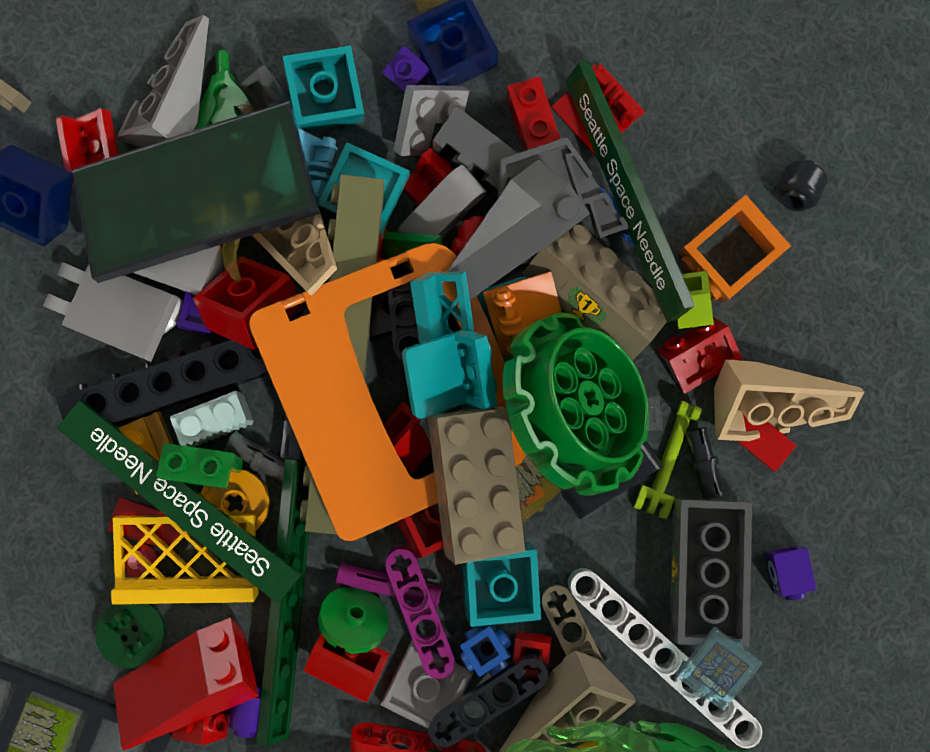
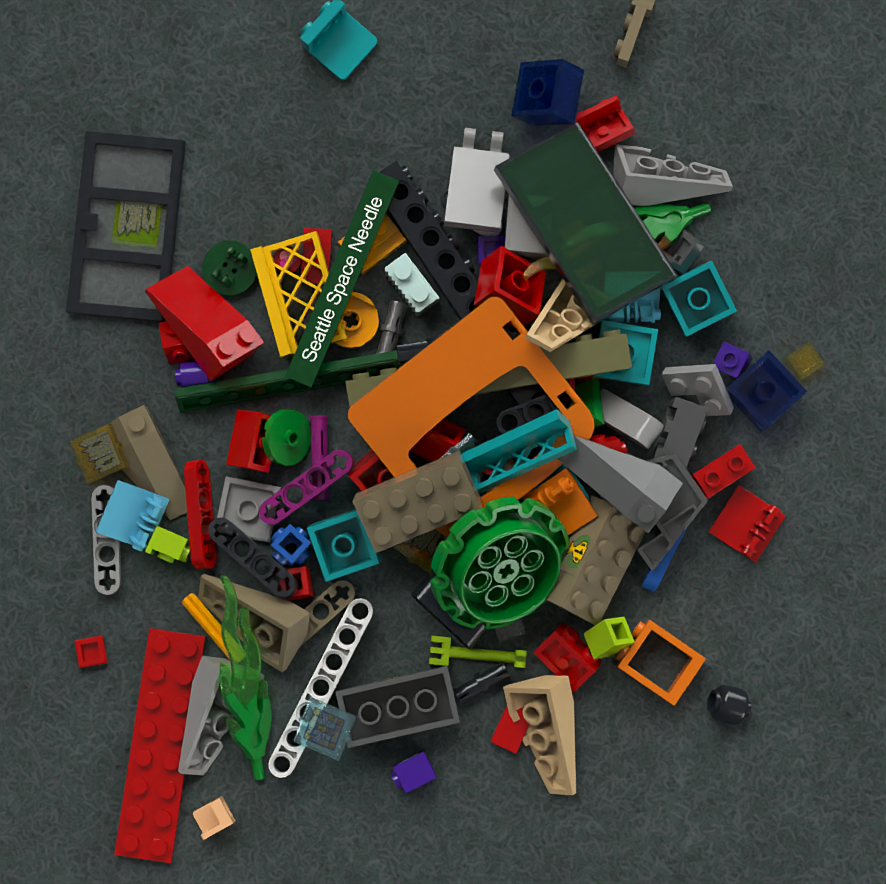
camera: 75 degrees right, 0 degrees up
(197, 465) = (373, 285): green bracket -> none
(427, 176) = (650, 400): red bracket -> none
(450, 373) = (495, 458): teal bracket -> none
(629, 193) = (681, 561): dark green tile -> none

